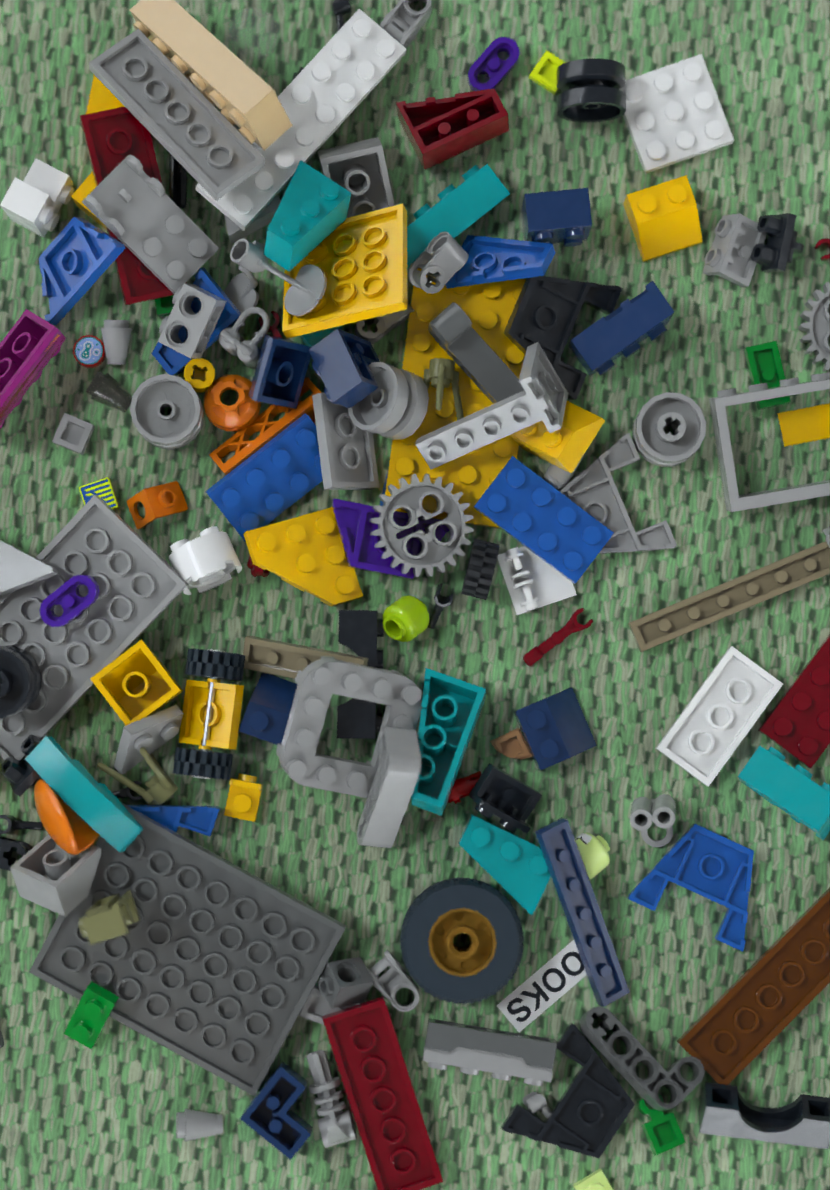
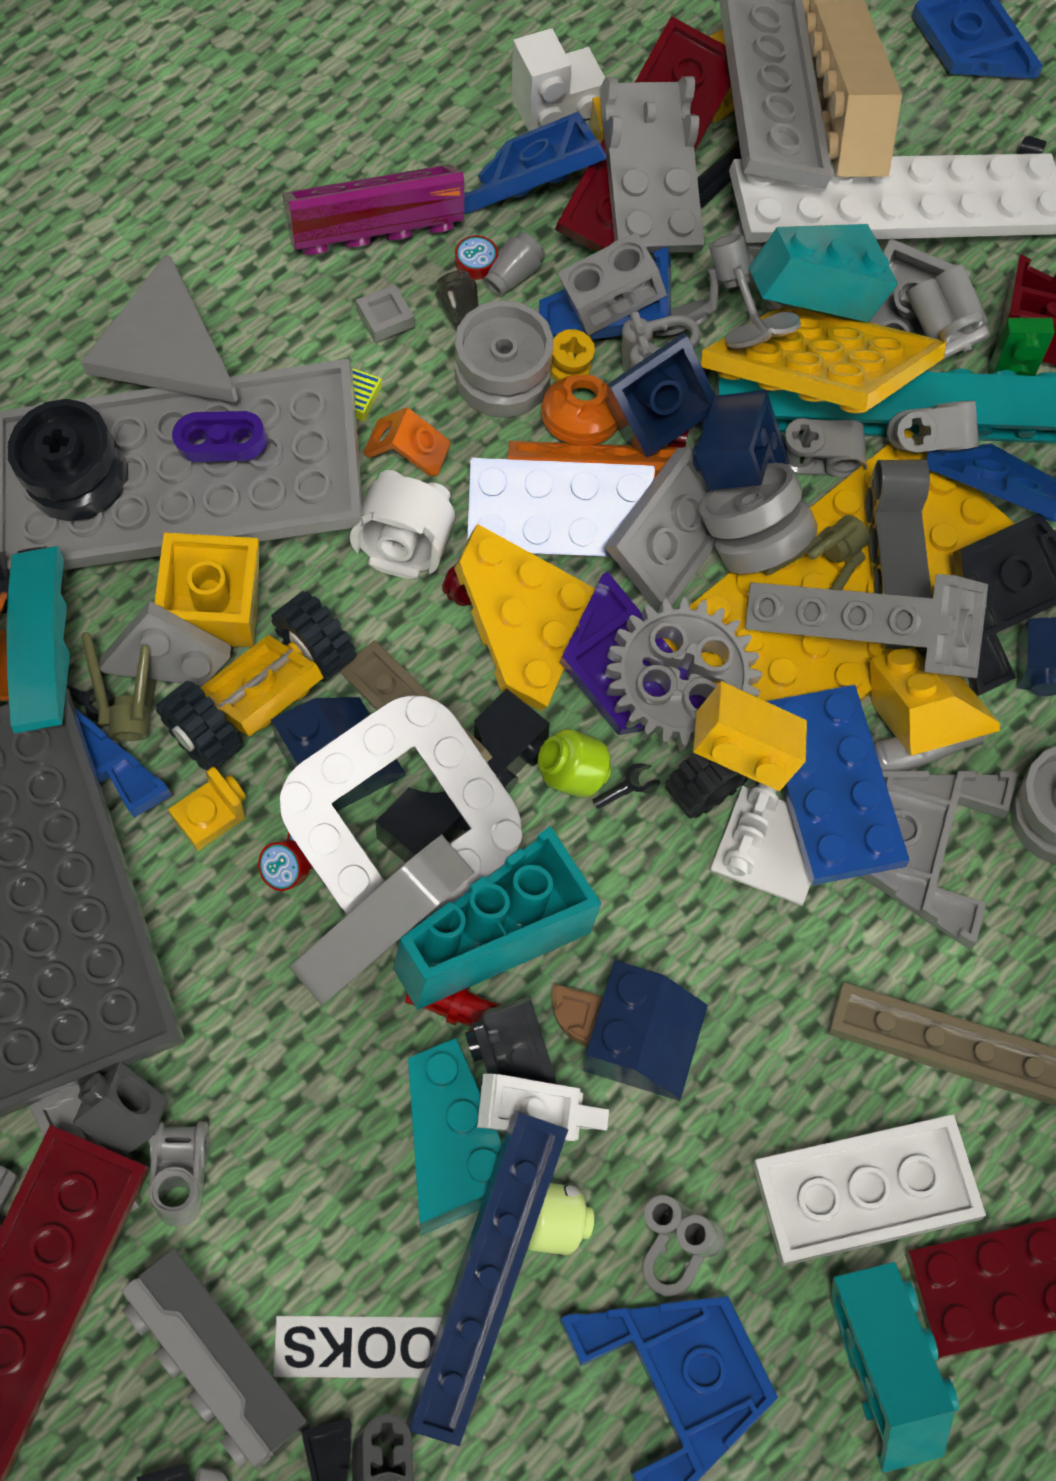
camera: 40 degrees right, 20 degrees down
(307, 797) = (283, 865): none -> tile
(388, 179) = (950, 310): none -> light grey piece
(443, 169) = (1022, 345): none -> green plate
(467, 971) = (313, 1232): black wheel -> none
(490, 543) = (750, 736): none -> yellow brick
(539, 812) = (539, 1099): none -> white hinge
(556, 638) = (695, 930): dark red piece -> none

